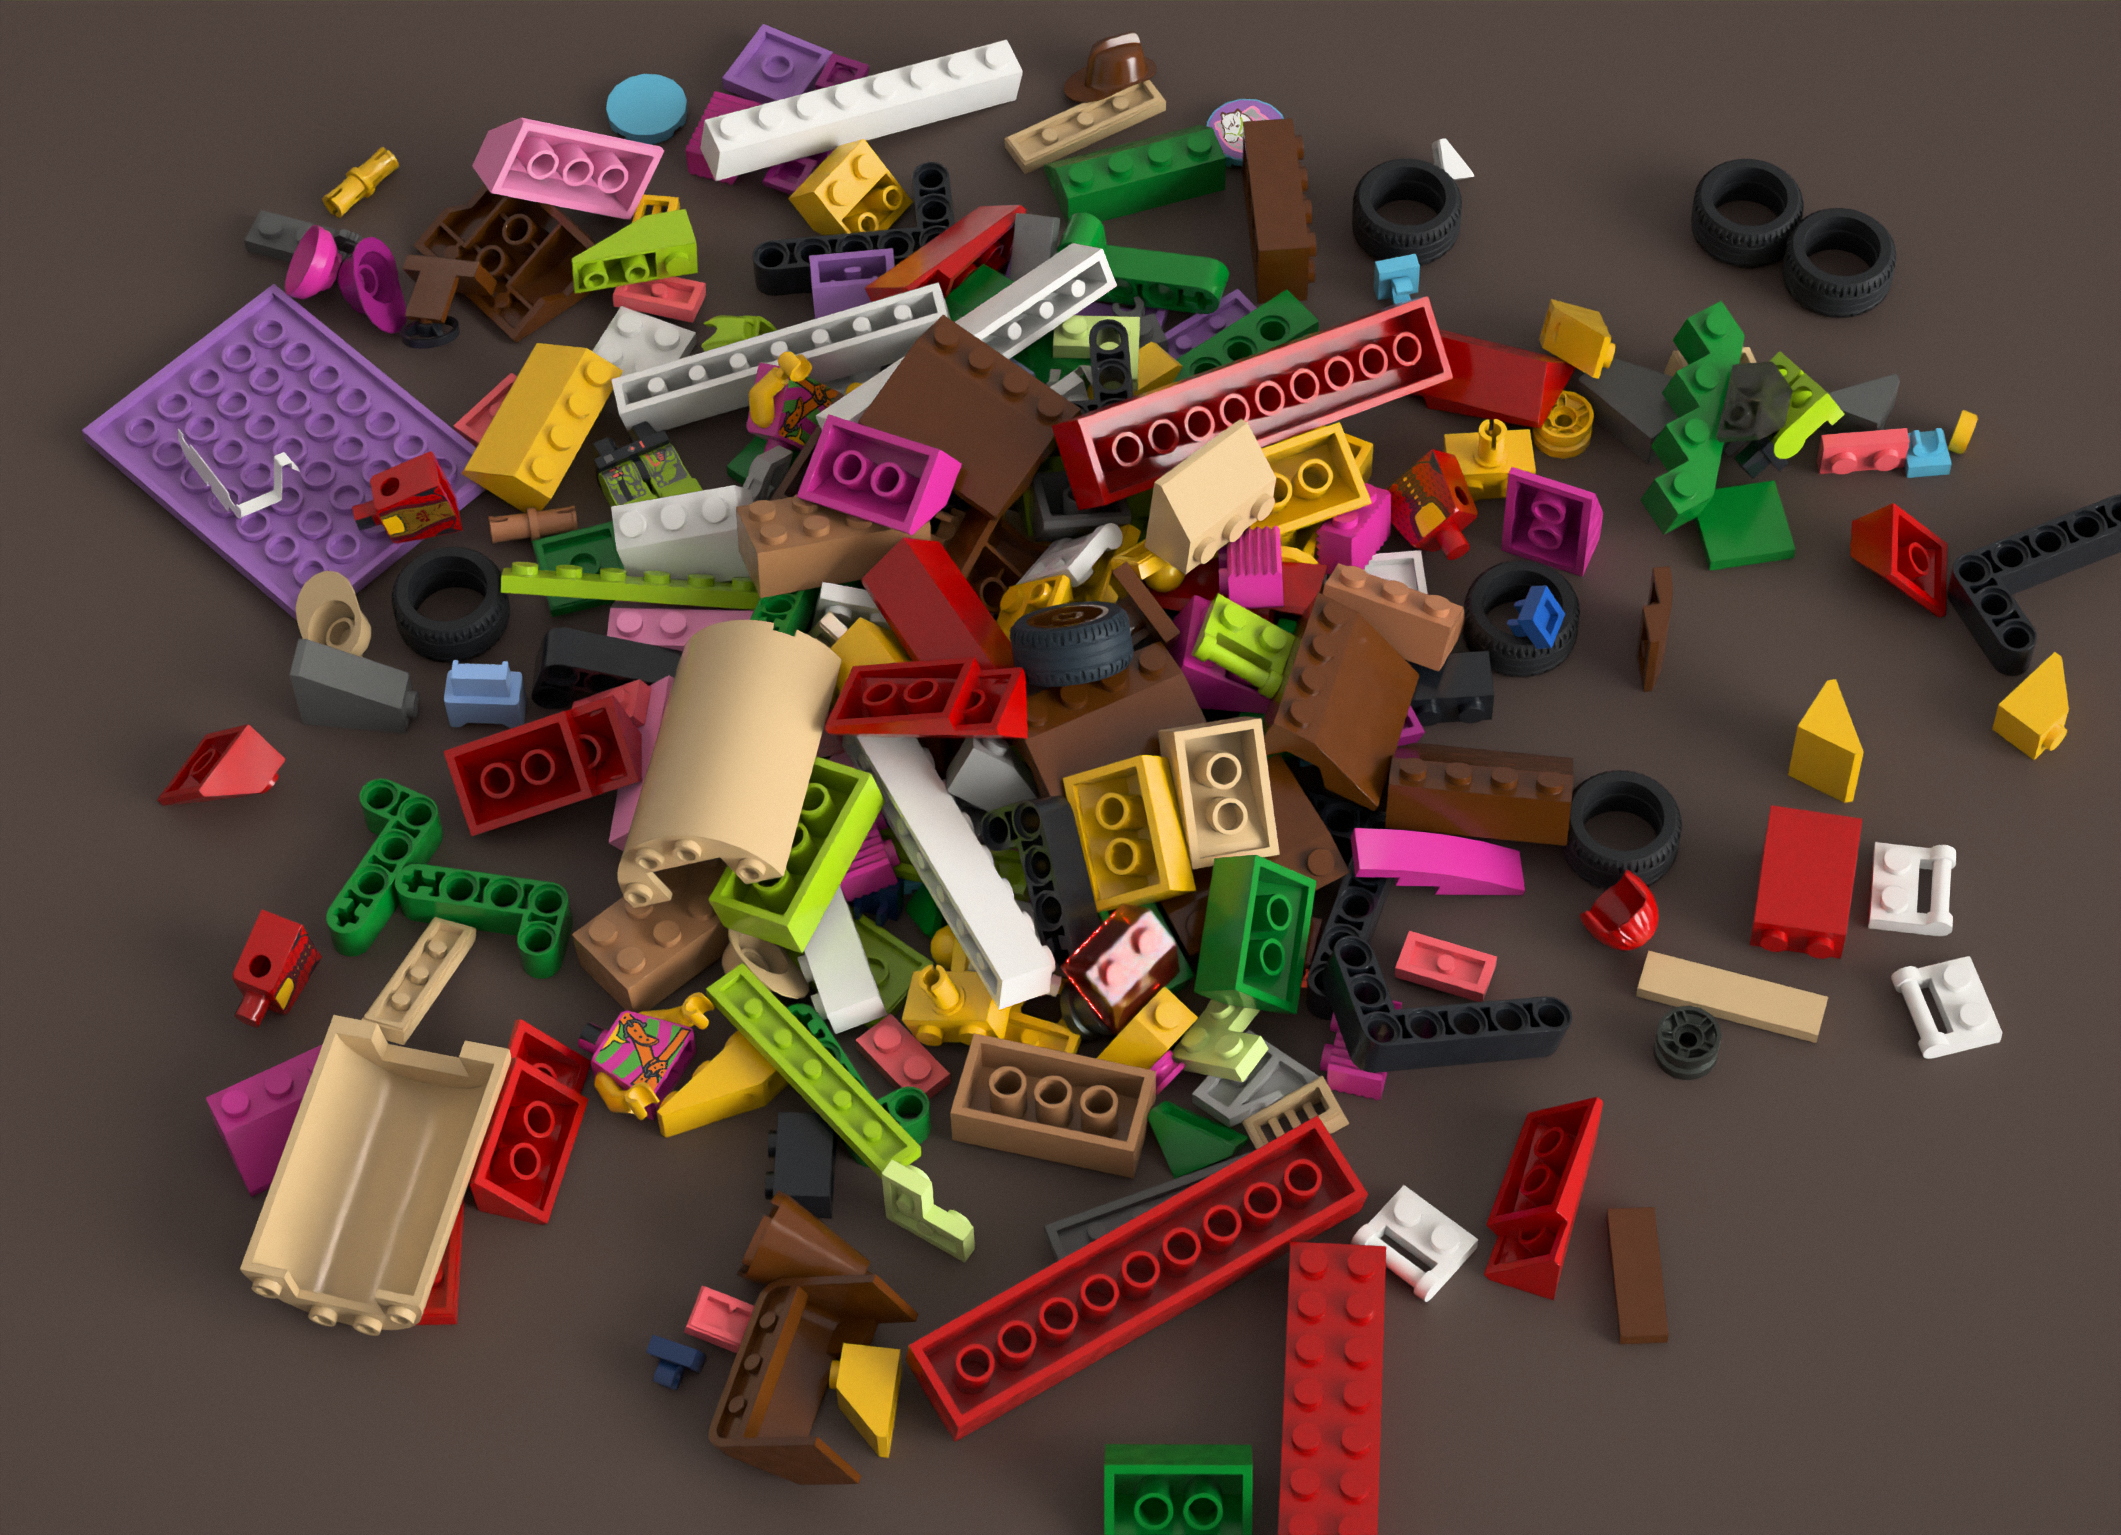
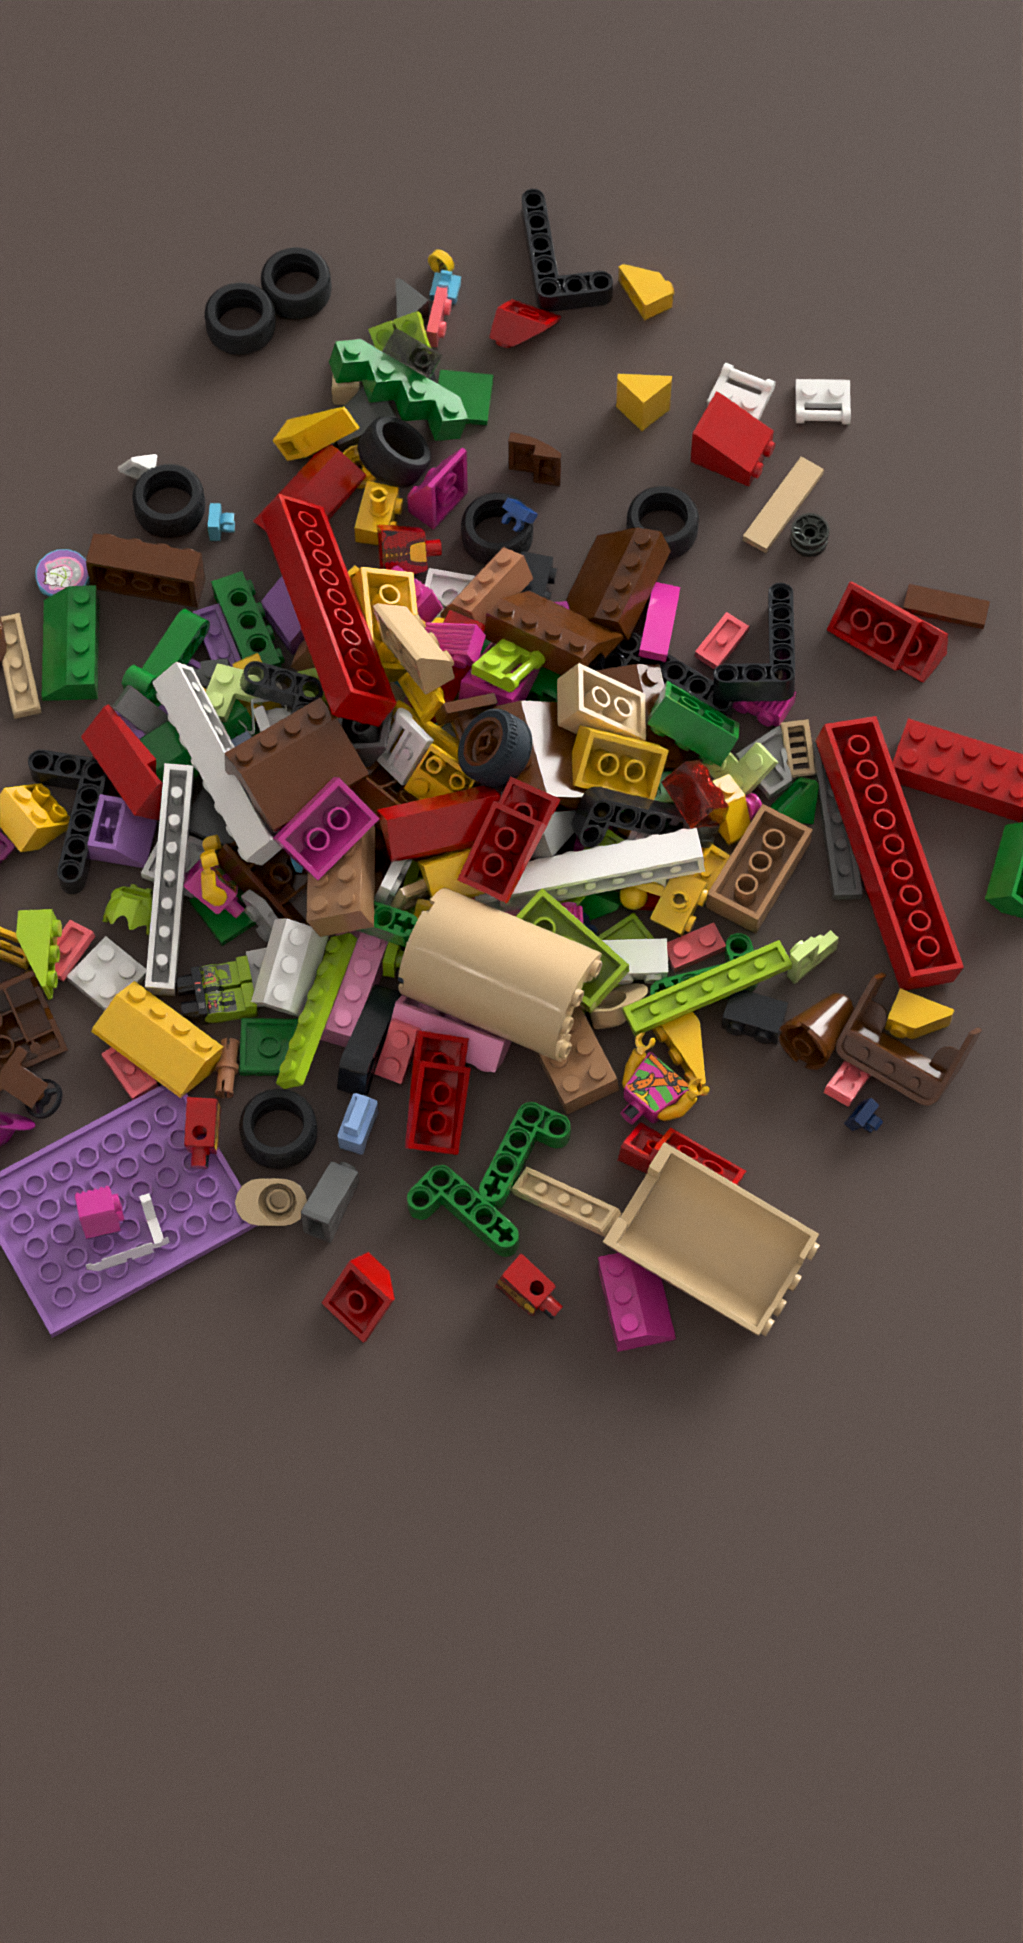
camera: 75 degrees left, 10 degrees up
(251, 414) = (99, 1211): none -> dark pink brick
(1424, 1234) = (893, 702): white plate -> none
(1623, 431) = (394, 452): none -> black tyre
(1623, 914) = (719, 538): red hair -> none

